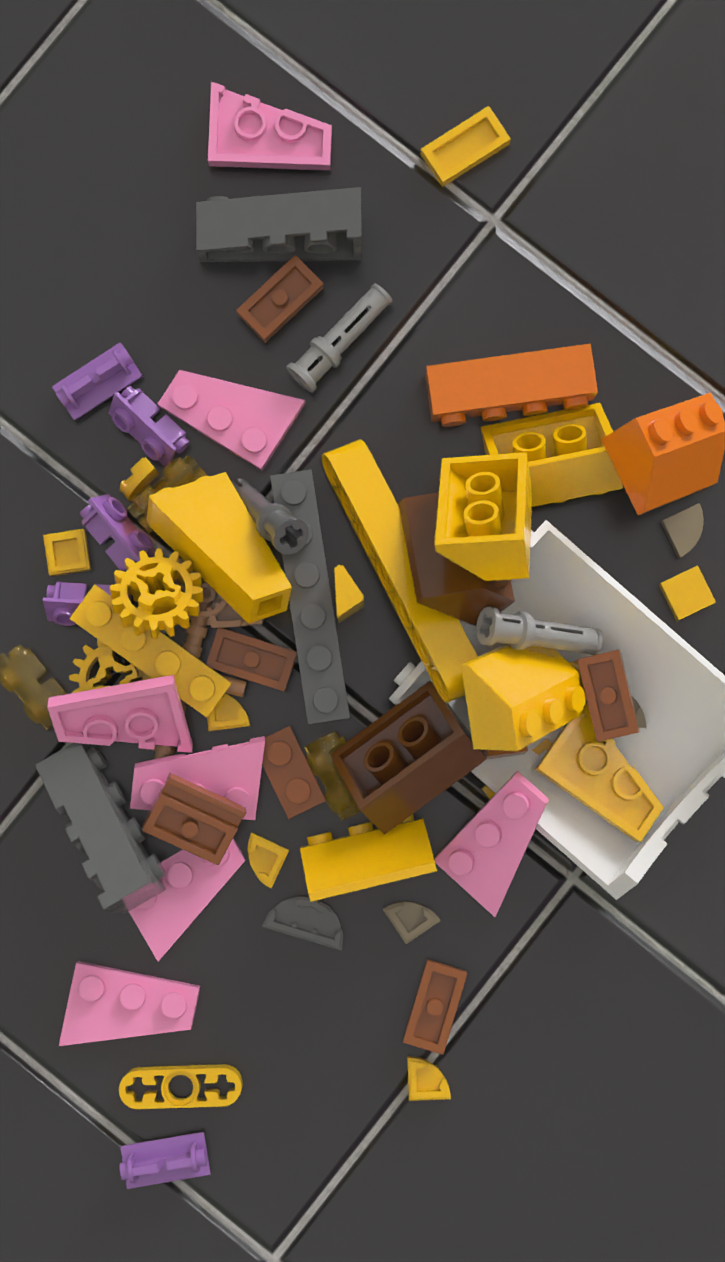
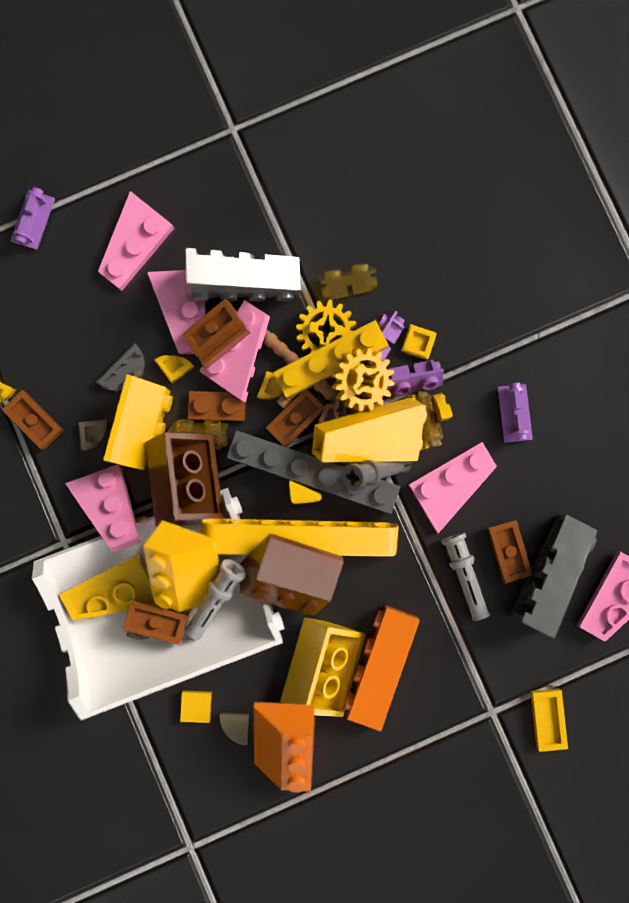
camera: 120 degrees right, 0 degrees up
(130, 712) = (298, 331): bright pink wing -> none
(134, 413) = (484, 425): medium lavender hinge -> none
(149, 1077) = (52, 262): yellow beam -> none
(486, 515) = (302, 605): yellow slope -> none

